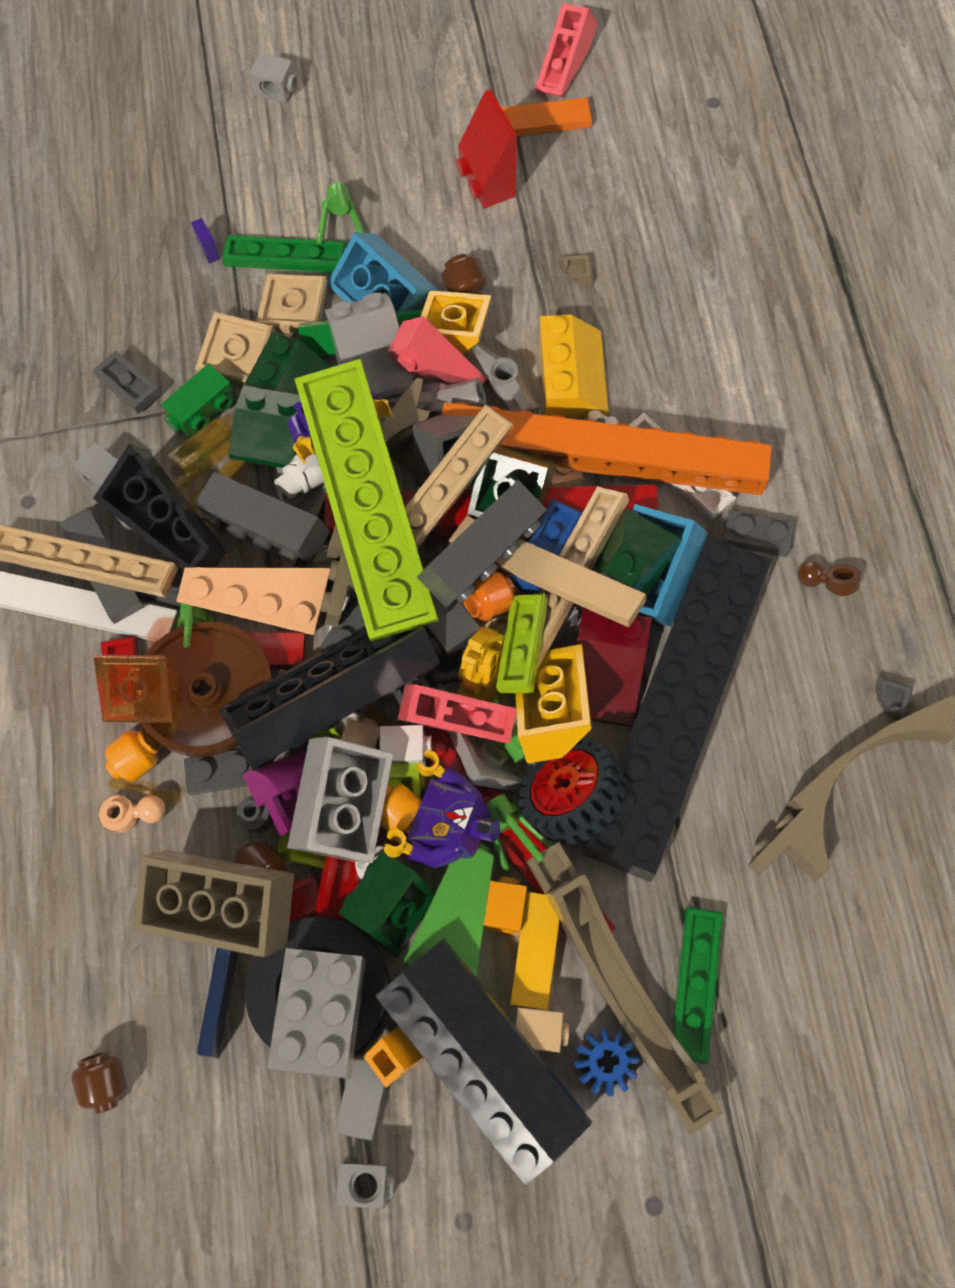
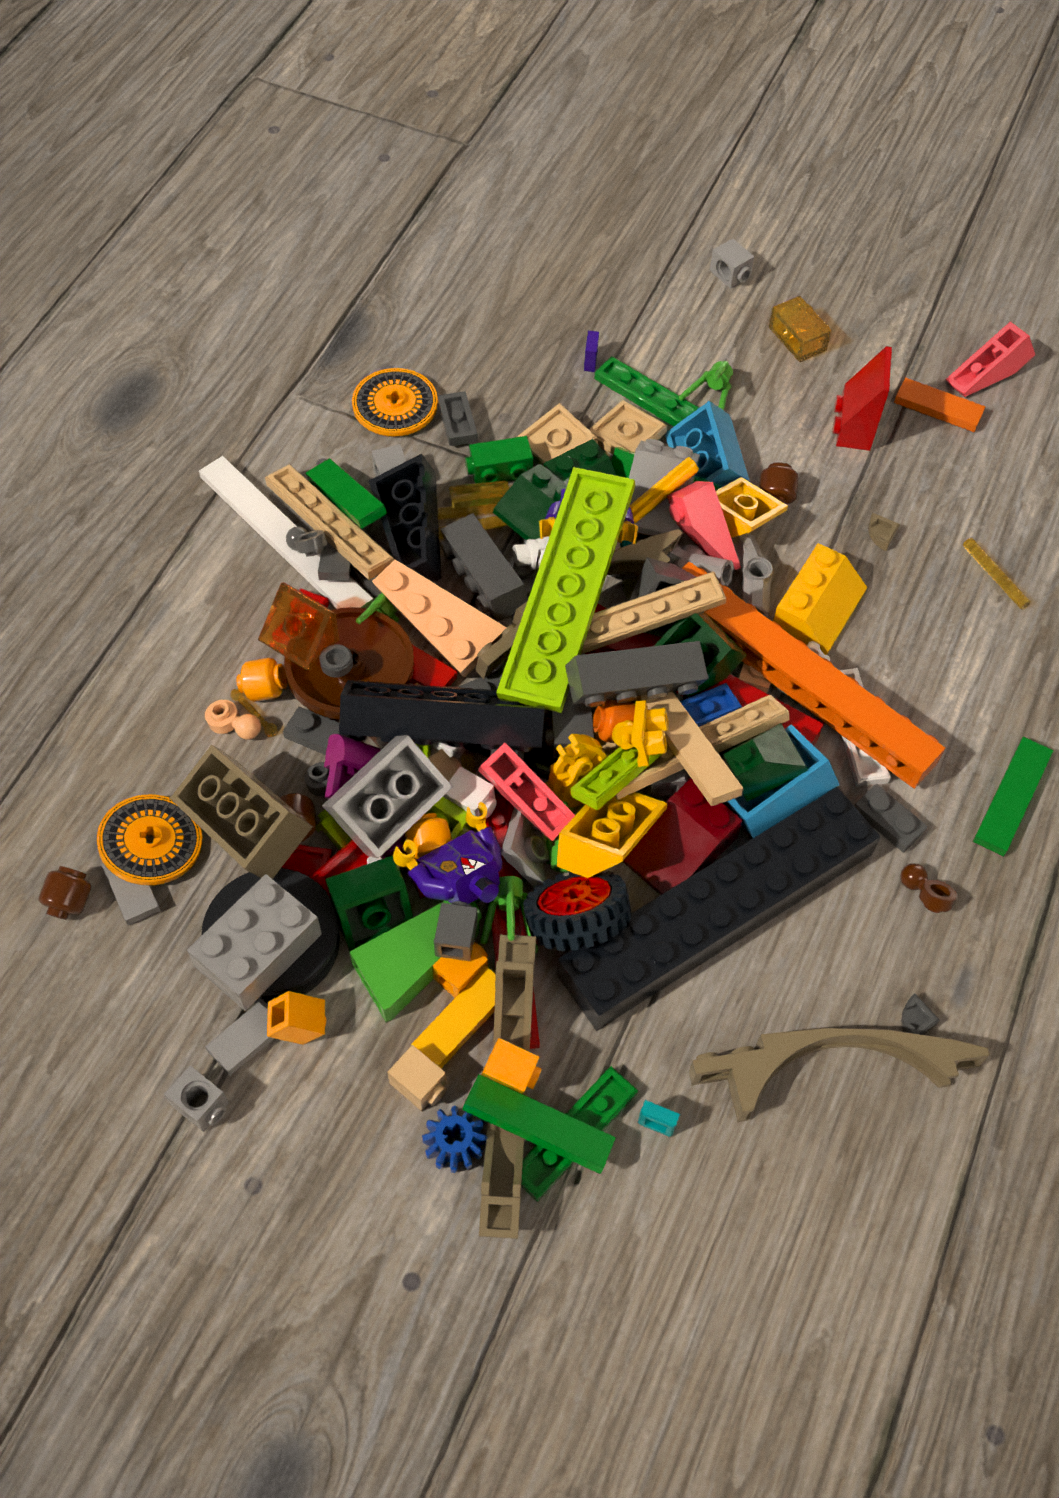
camera: 30 degrees right, 10 degrees down
(30, 403) = (414, 407): none -> piece
(78, 522) = (346, 493): none -> green tile
(80, 595) = (306, 542): none -> dark grey plate
(134, 1005) = (124, 845): none -> piece
(155, 1033) = (133, 899): none -> light grey tile
(192, 696) = (336, 660): none -> dark grey tile
(217, 1003) = (192, 892): dark blue tile -> none
(378, 110) = (800, 328): none -> clear yellow brick
(380, 342) = (663, 488): none -> yellow axle
(485, 1061) = (355, 1065): black slope -> none
(486, 881) = (455, 931): none -> dark grey brick
(514, 604) = (644, 733): none -> yellow hips
(616, 970) = (512, 1066): none -> light orange brick
(669, 1001) = (539, 1124): none -> green tile
(696, 252) = (996, 573): none -> clear yellow bar
(757, 926) = (658, 1118): none -> teal tile
(840, 451) = (1013, 796): none -> green tile

